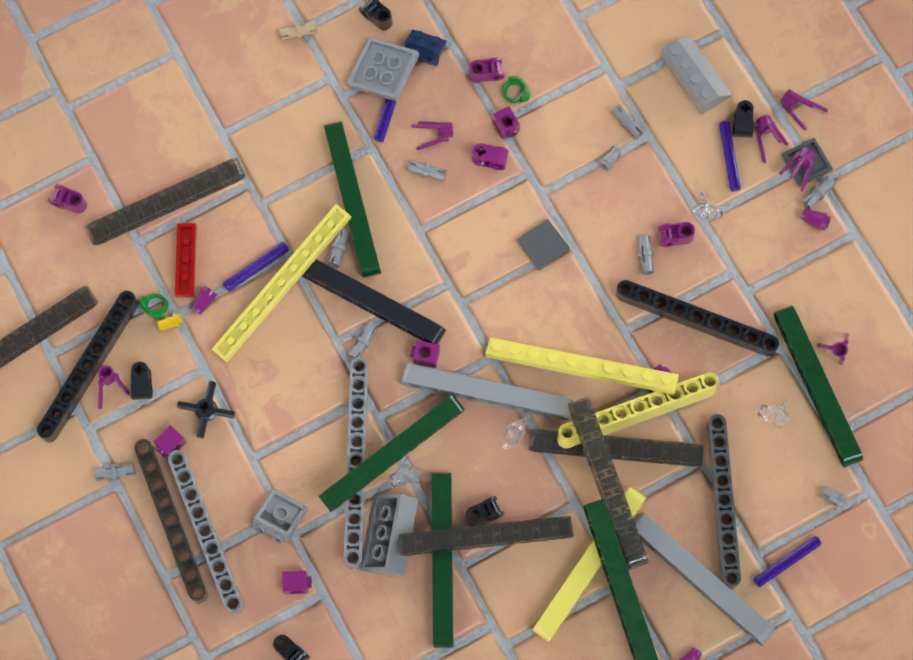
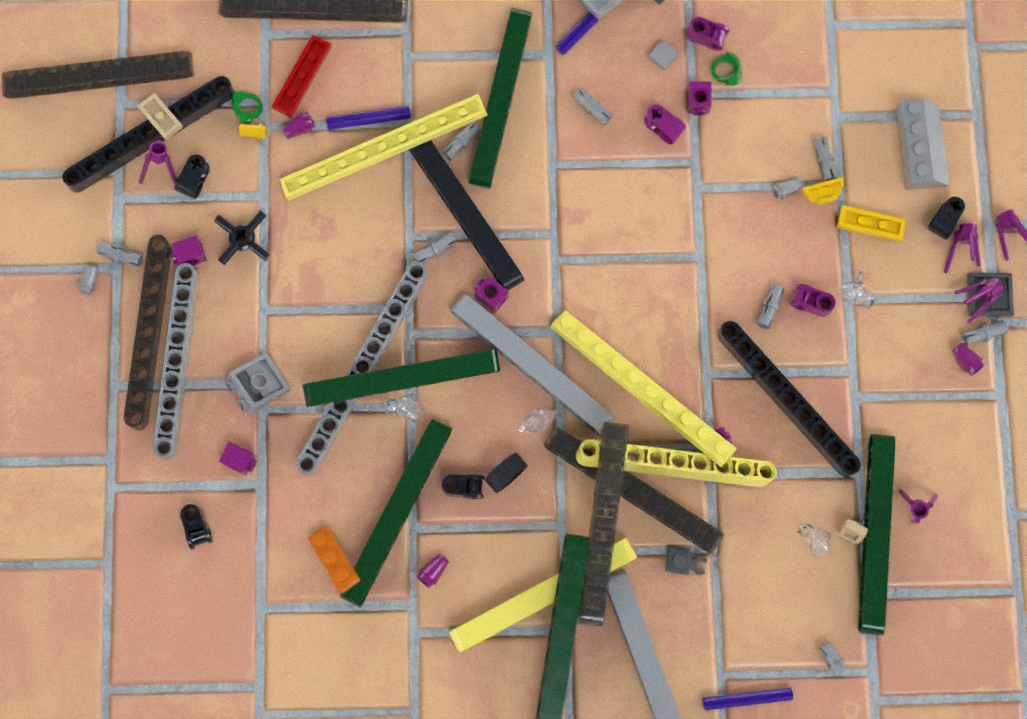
camera: 20 degrees right, 5 degrees up
(92, 347) = (160, 116): none -> tan plate
(100, 505) = (88, 280): none -> light grey pin
(389, 518) = (357, 459): light grey slope -> none
(413, 620) = (334, 559): none -> orange plate
(444, 129) = (632, 72): magenta plant -> none
(461, 104) = (663, 55): none -> light grey tile
(485, 535) = (451, 512): clear smoke beam -> none
(494, 590) = (432, 571): none -> magenta cone
(511, 484) = (506, 472): none -> black tyre
(543, 244) = (670, 242): dark grey tile -> none
(640, 147) = (824, 192): none -> yellow plate
(682, 484) = (681, 562): none -> dark grey plate
(688, 153) = (871, 223): none -> yellow plate
(727, 492) = (723, 594): dark grey beam -> none
(729, 155) = (912, 248): dark purple axle -> none
(798, 393) = (852, 531): none -> tan plate

